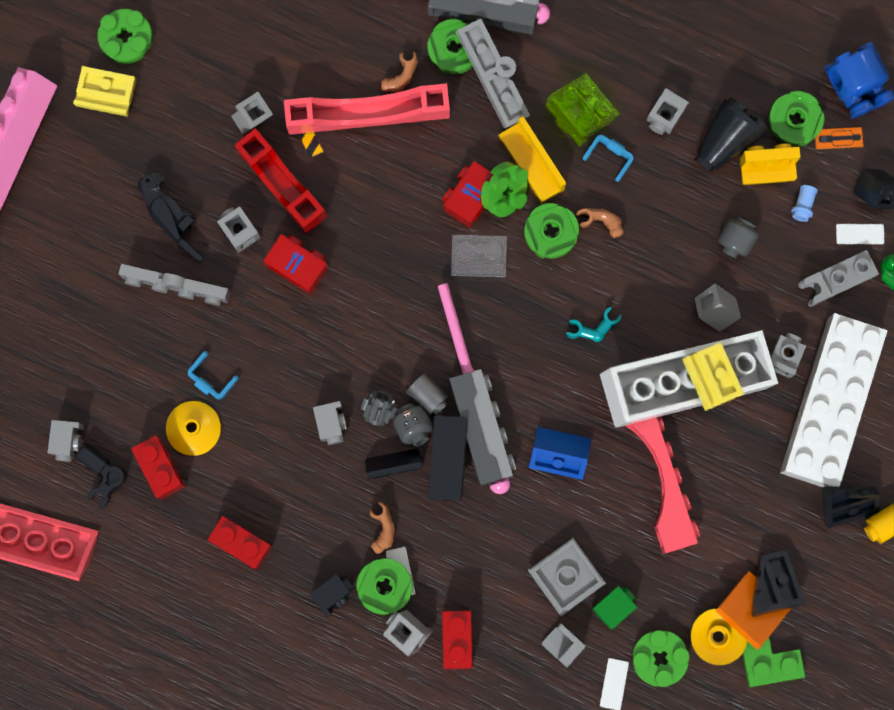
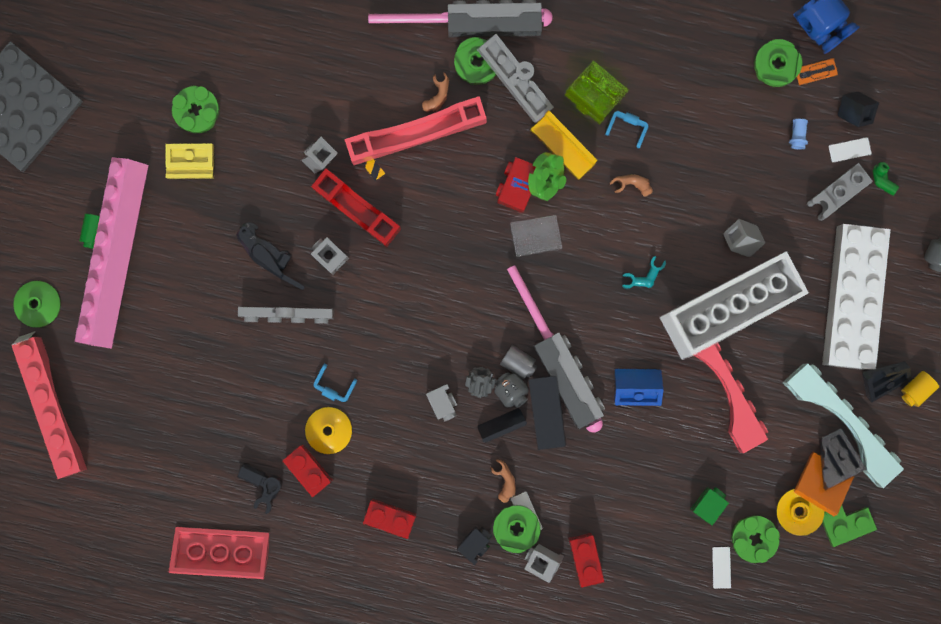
camera: 15 degrees left, 5 degrees up
(64, 439) = (224, 464): light grey brick -> none
(296, 263) = (384, 274): red brick -> none
(537, 223) = (595, 189): bright green plate -> none
(563, 645) = (674, 545): light grey panel -> none
(566, 577) = (665, 488): light grey plate -> none
(670, 104) = (671, 73): light grey brick -> none
(713, 376) = (755, 301): light yellow plate -> none
(729, 135) = (725, 90): black cone -> none
(738, 237) = (749, 175): dark grey head -> none
(769, 165) = (763, 109): yellow bracket -> none
(782, 364) = (810, 275): light grey brick -> none
(822, 599) = (879, 463): none -> light aqua arch

